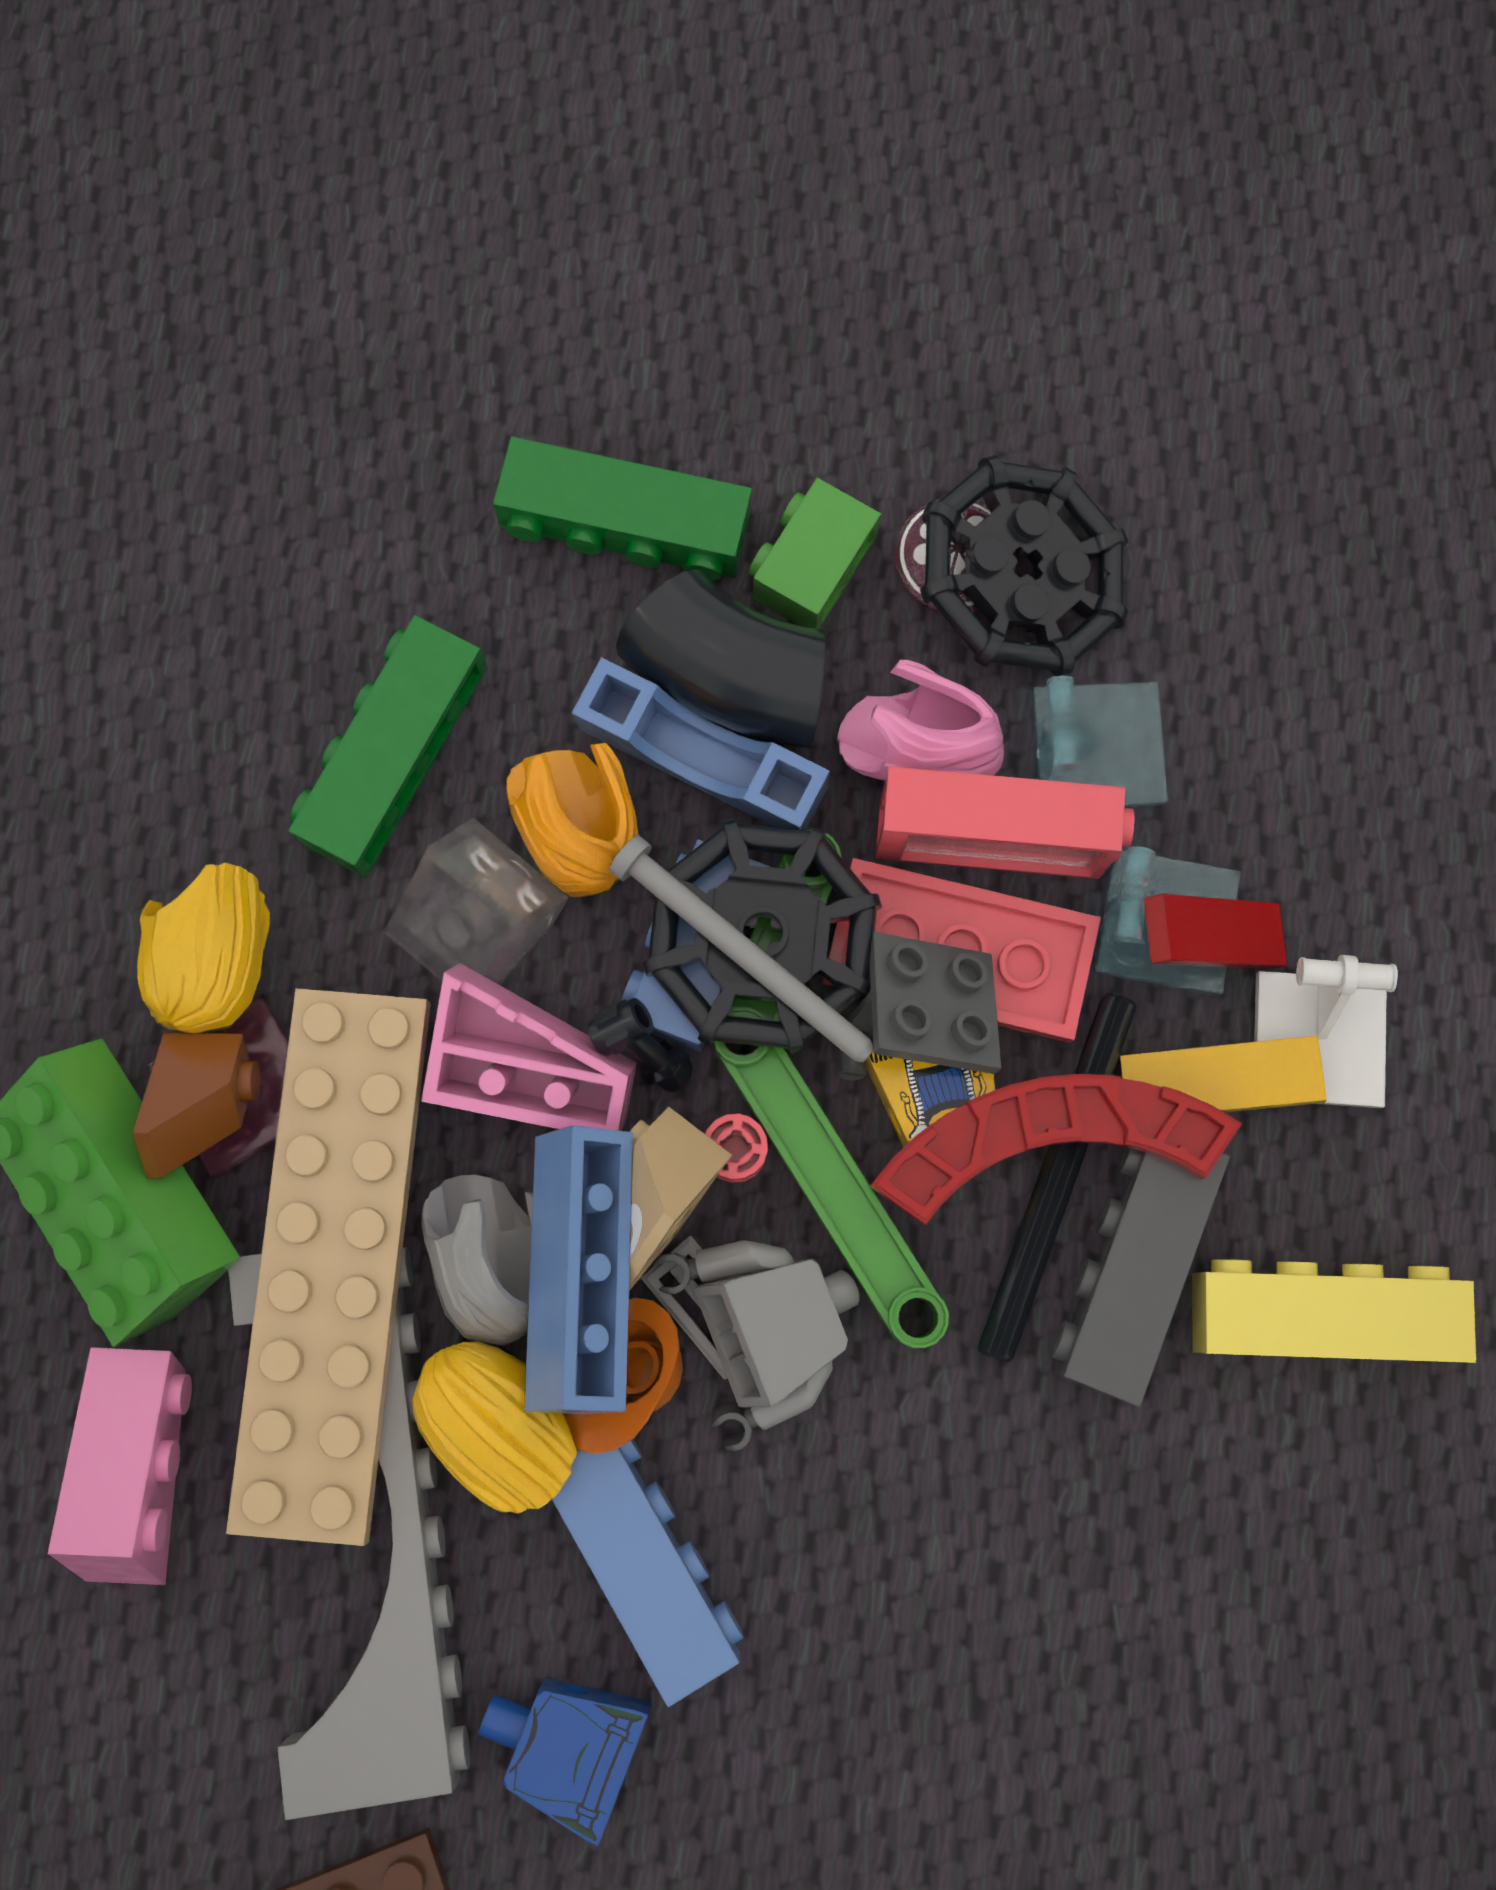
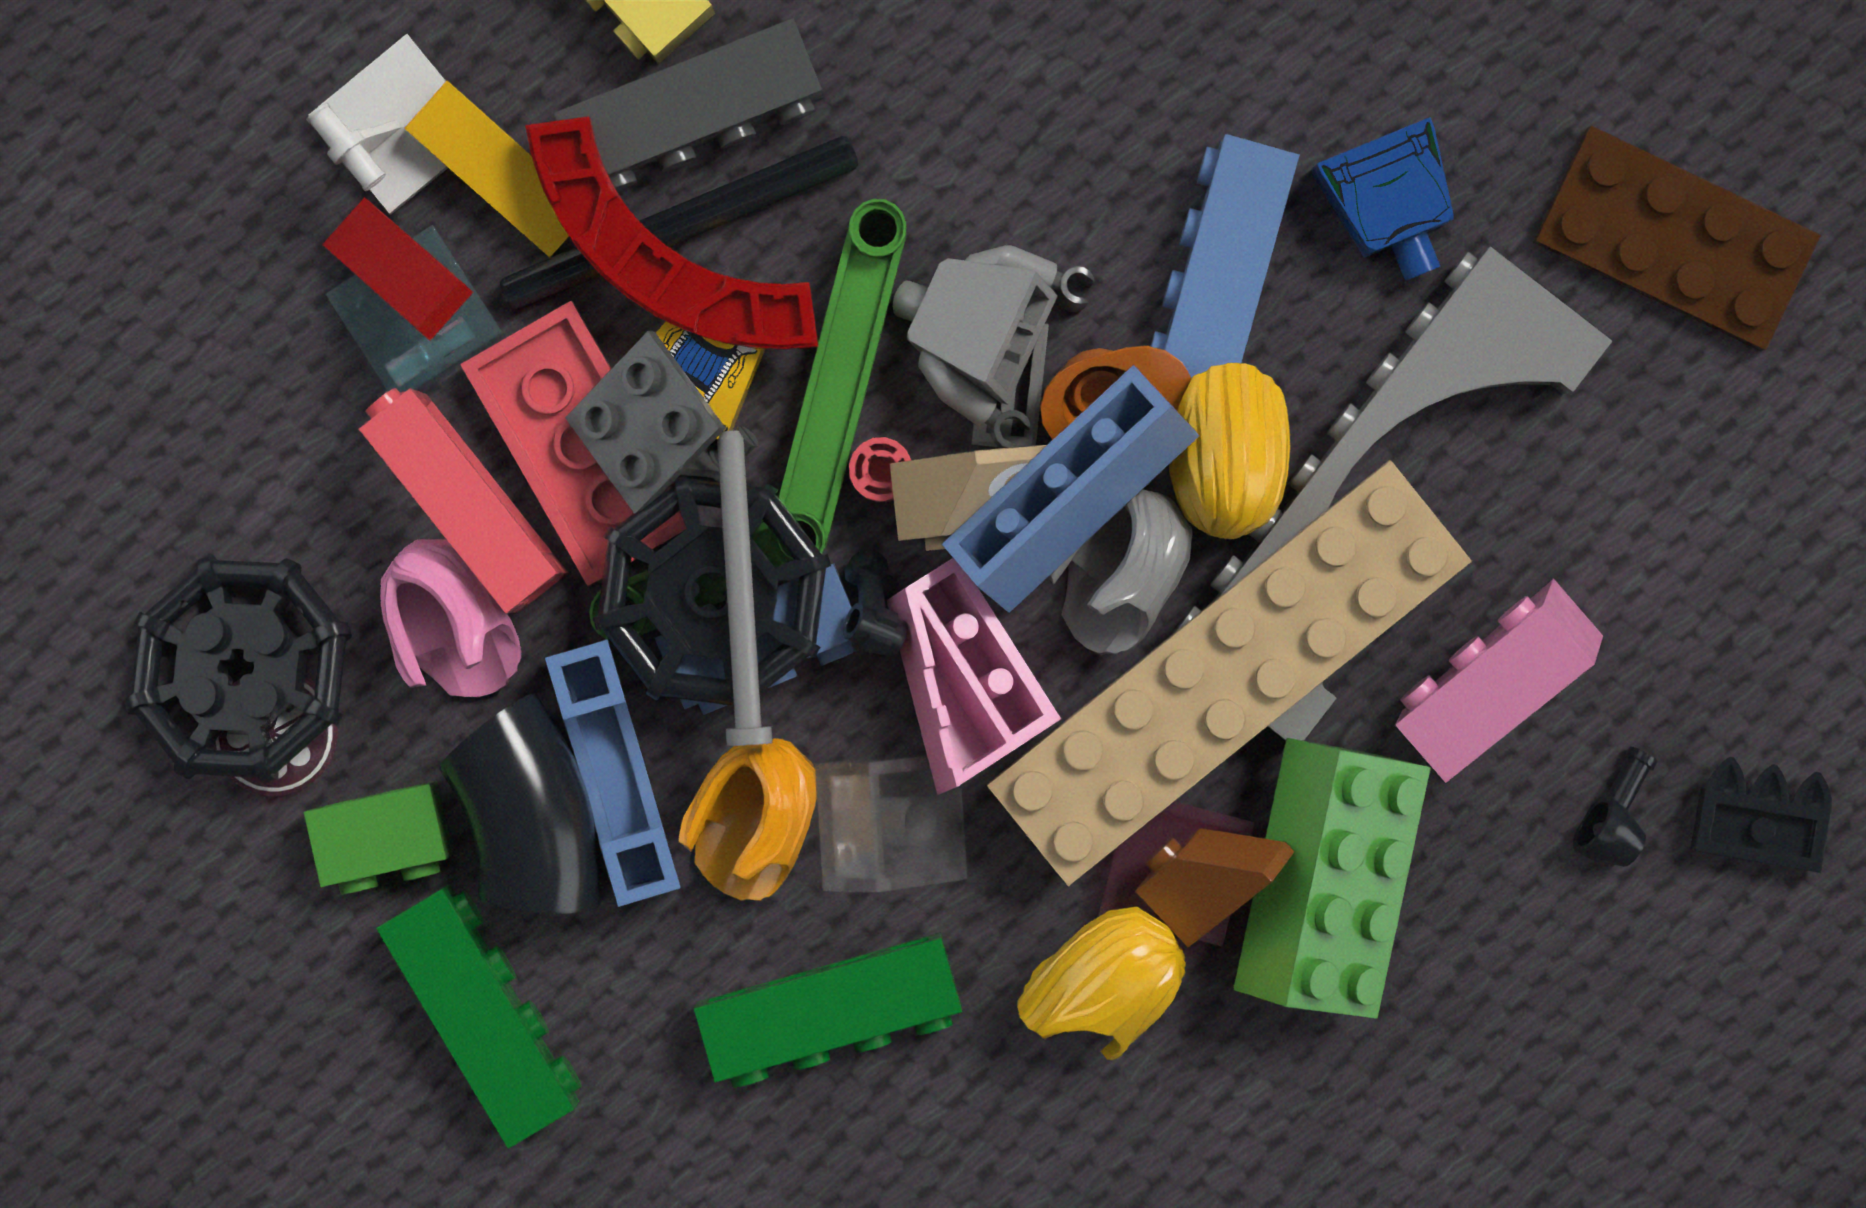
camera: 130 degrees left, 10 degrees up
(1102, 737) = (322, 486): clear light blue plate -> none

